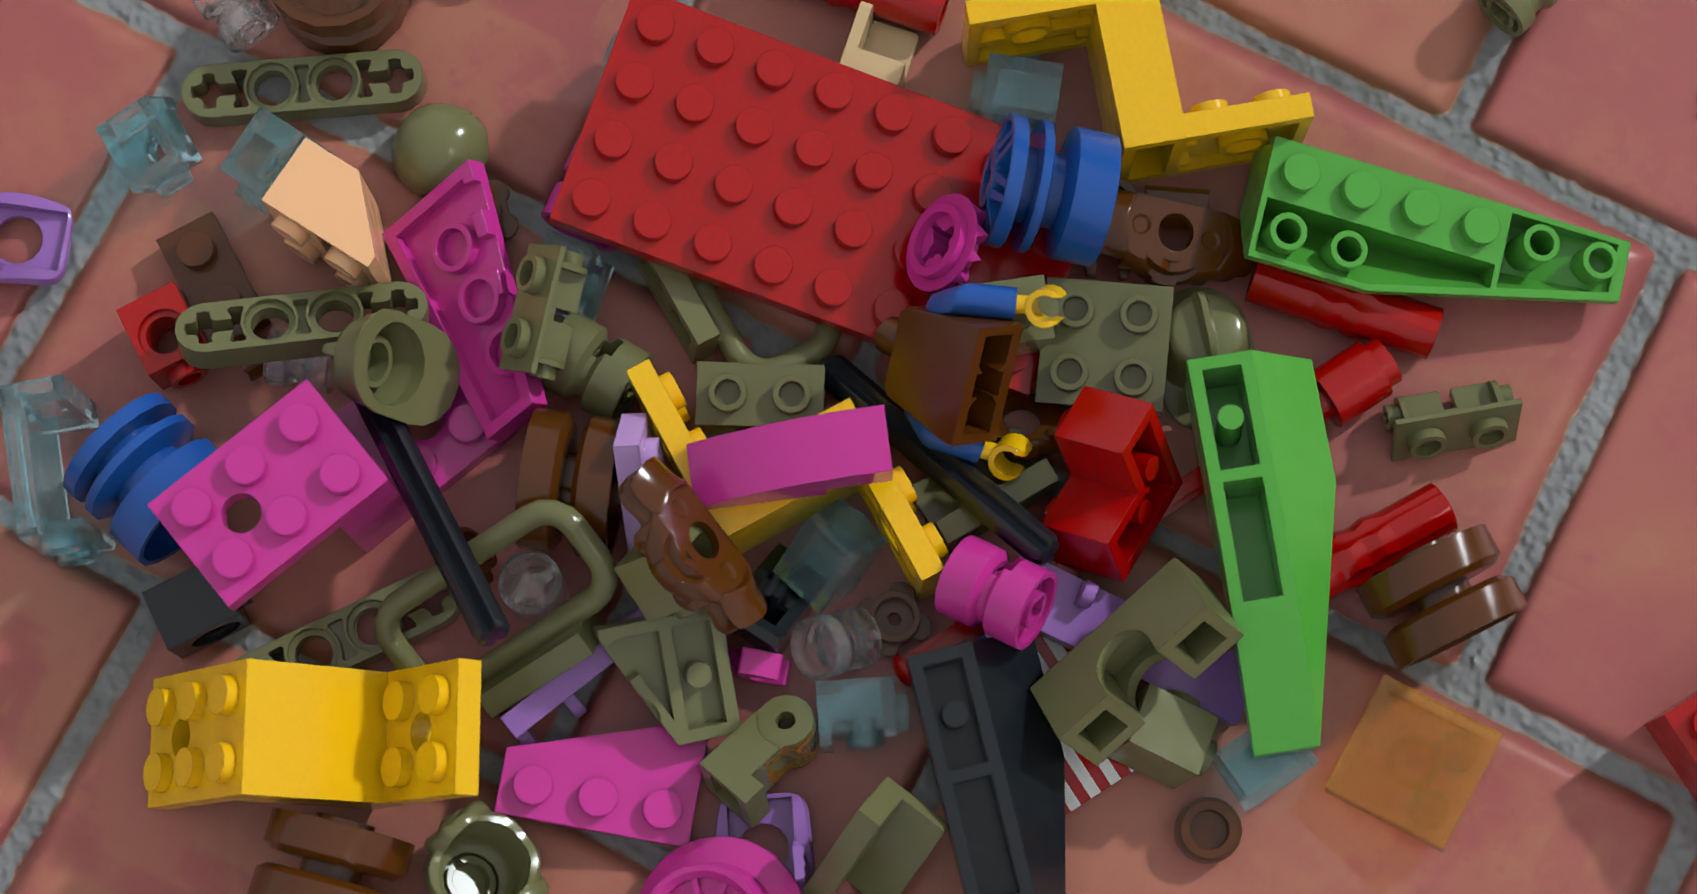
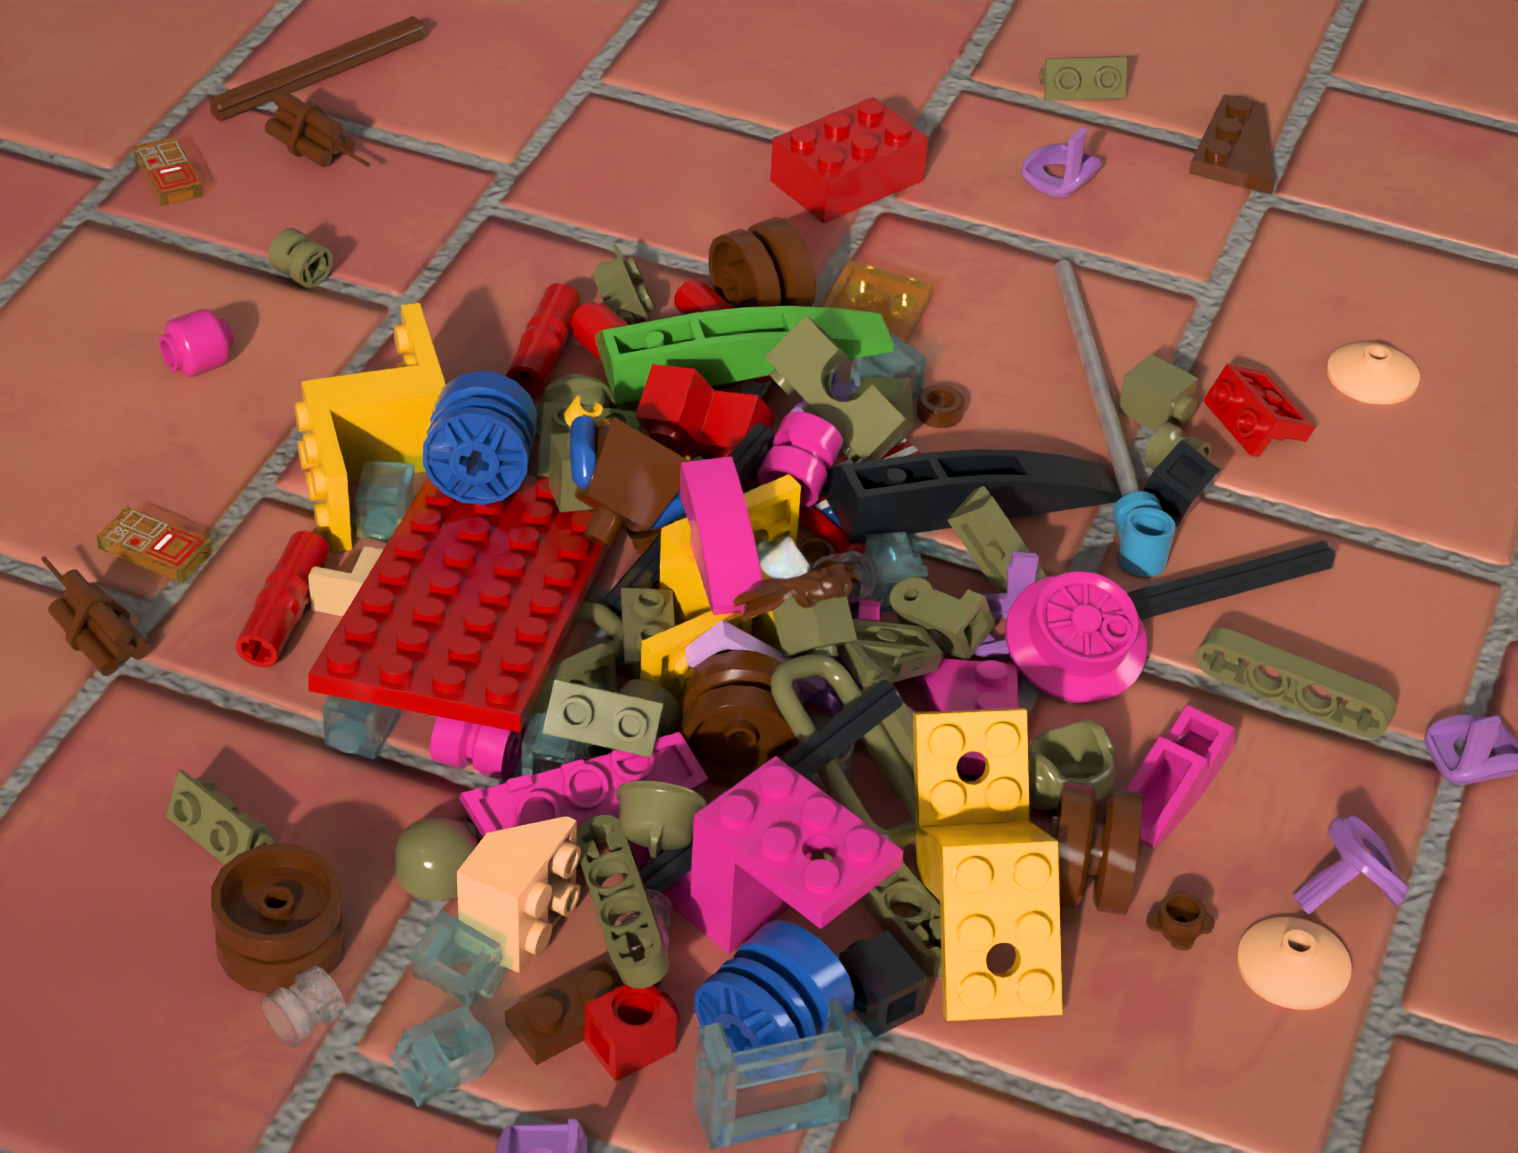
camera: 100 degrees left, 35 degrees down
(305, 79) = (378, 959): olive beam -> none
(933, 257) = (503, 487): dark pink gear -> none
(1413, 236) = (492, 300): bright green wedge -> none

